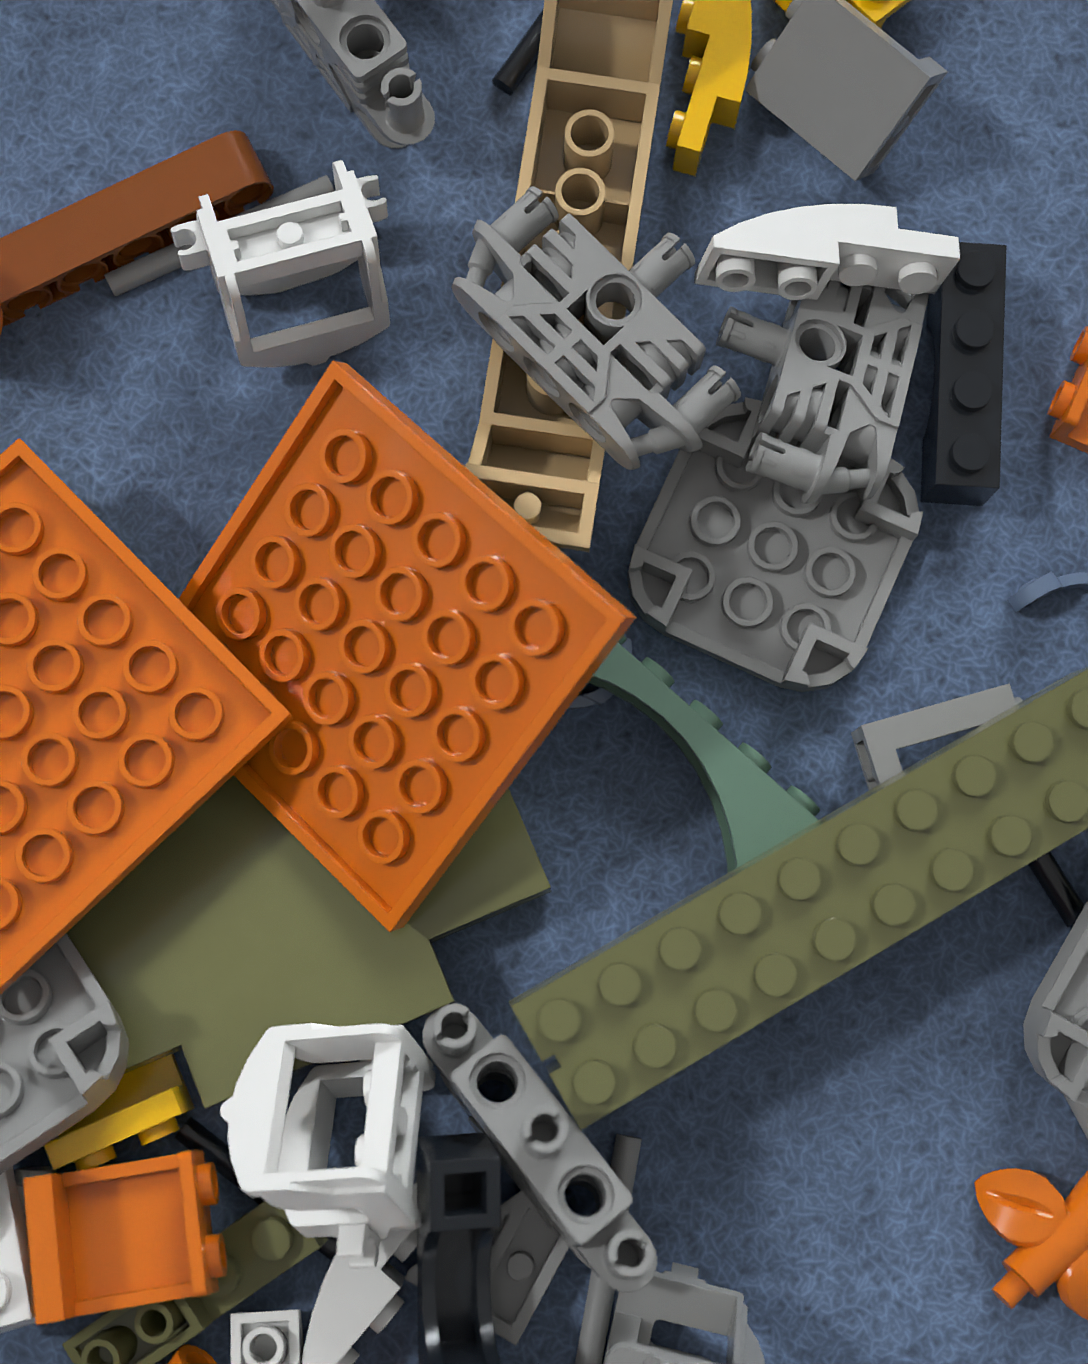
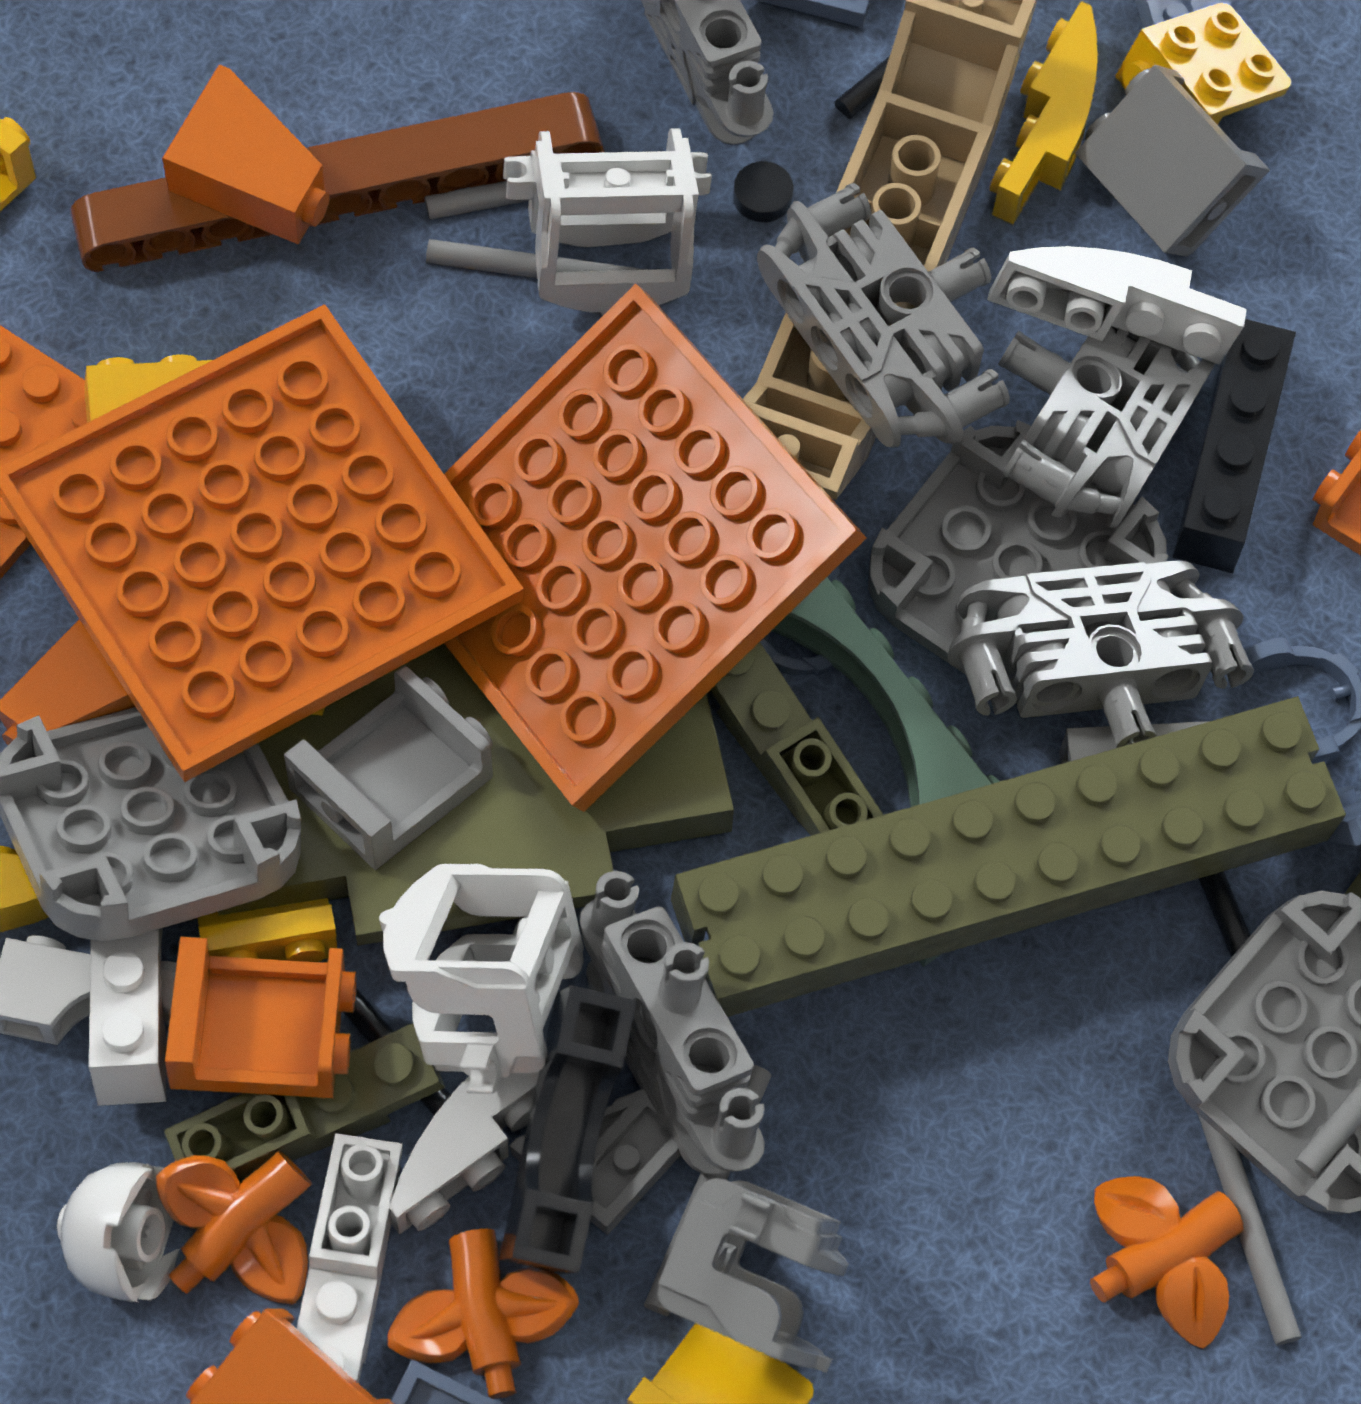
camera: 10 degrees right, 15 degrees down
(202, 926) = (393, 769): none -> light grey panel
(216, 326) = (503, 260): none -> light grey bar
(441, 195) = (763, 191): none -> black tile
(610, 814) = (789, 747): none -> olive slope
(915, 614) = (1097, 642): none -> light grey piece

